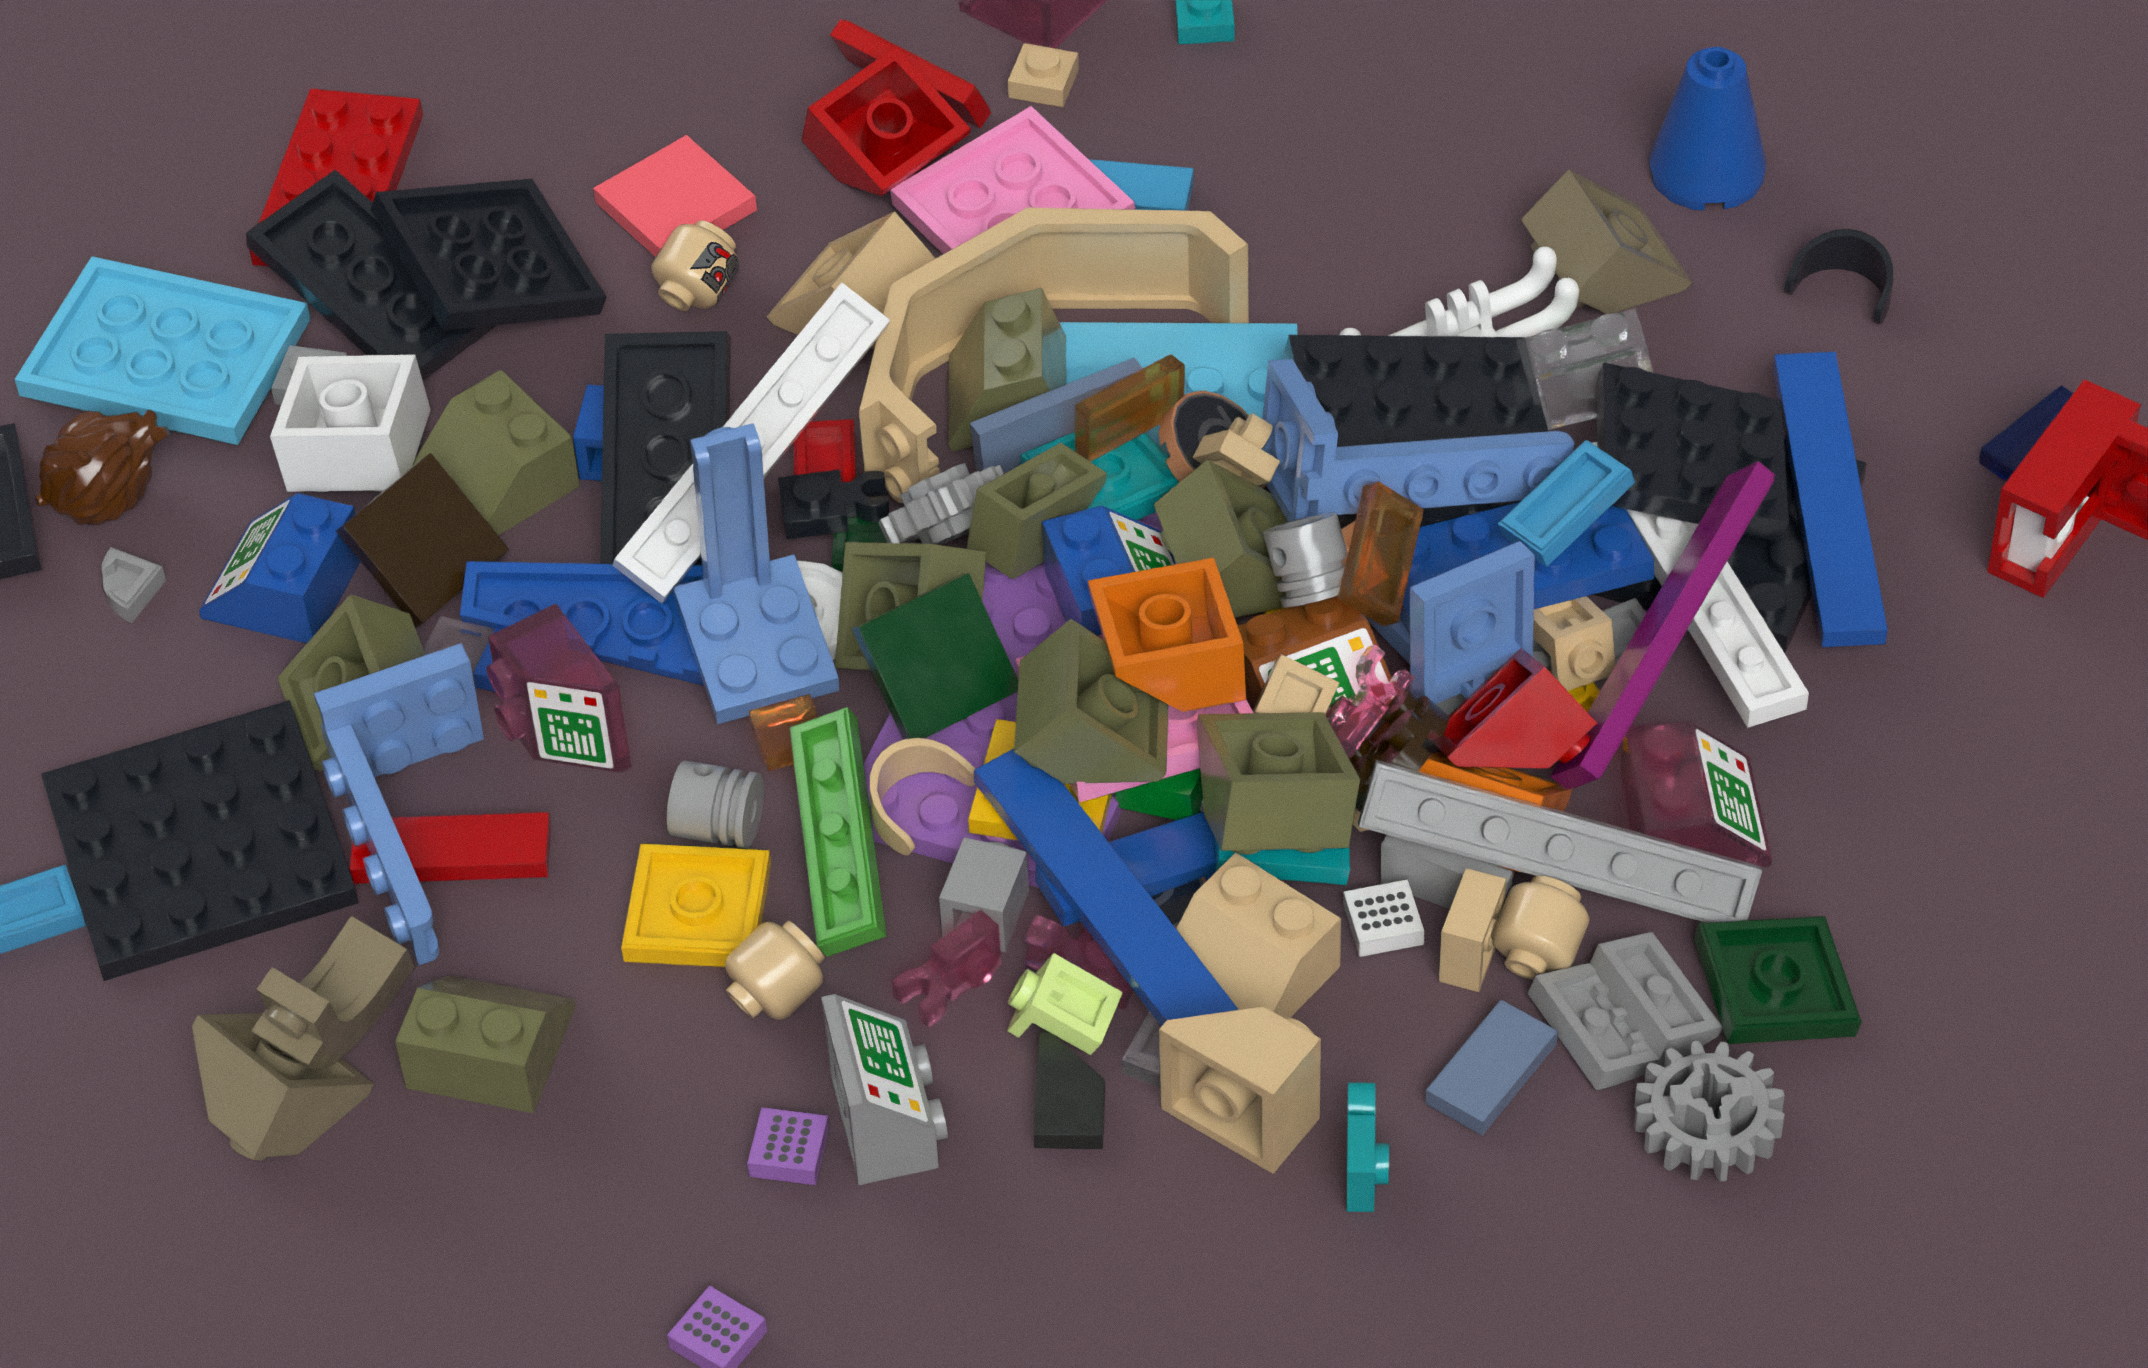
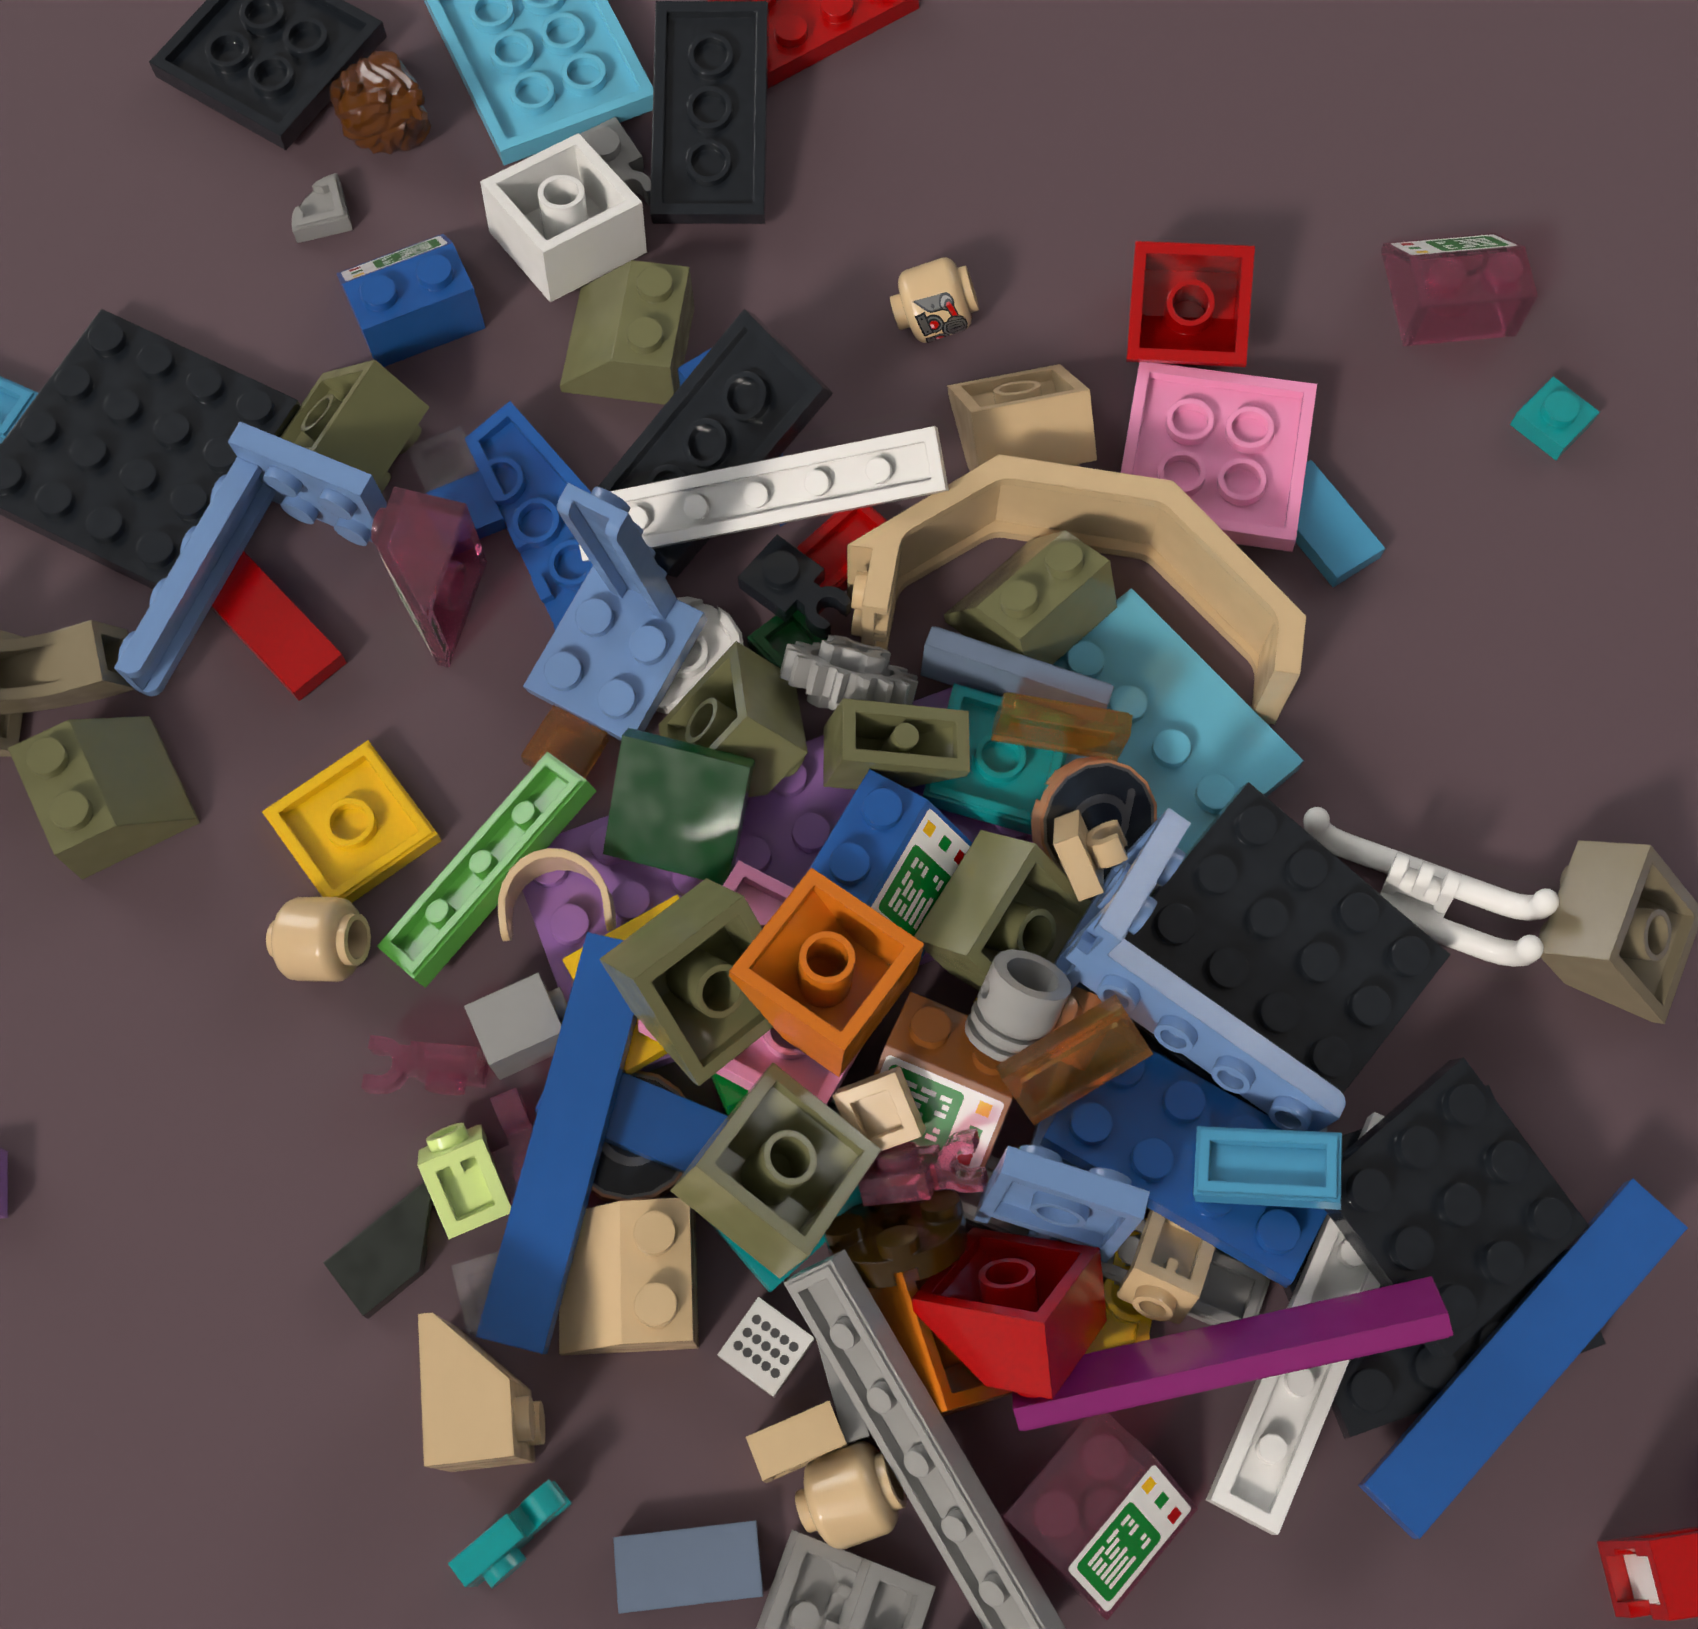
camera: 45 degrees right, 20 degrees up
(420, 539) = (500, 353): dark brown tile -> none
(487, 254) = (799, 162): black plate -> none
(673, 189) = (998, 228): coral tile -> none
(715, 804) = (436, 770): light grey piece -> none
(788, 1146) = (179, 1087): medium lavender tile -> none
(865, 47) = (1270, 274): red tile -> none
(881, 1091) = (249, 1119): light grey slope -> none
(1043, 75) = (1373, 361): tan plate -> none
(1567, 361) = (1472, 1013): clear slope -> none

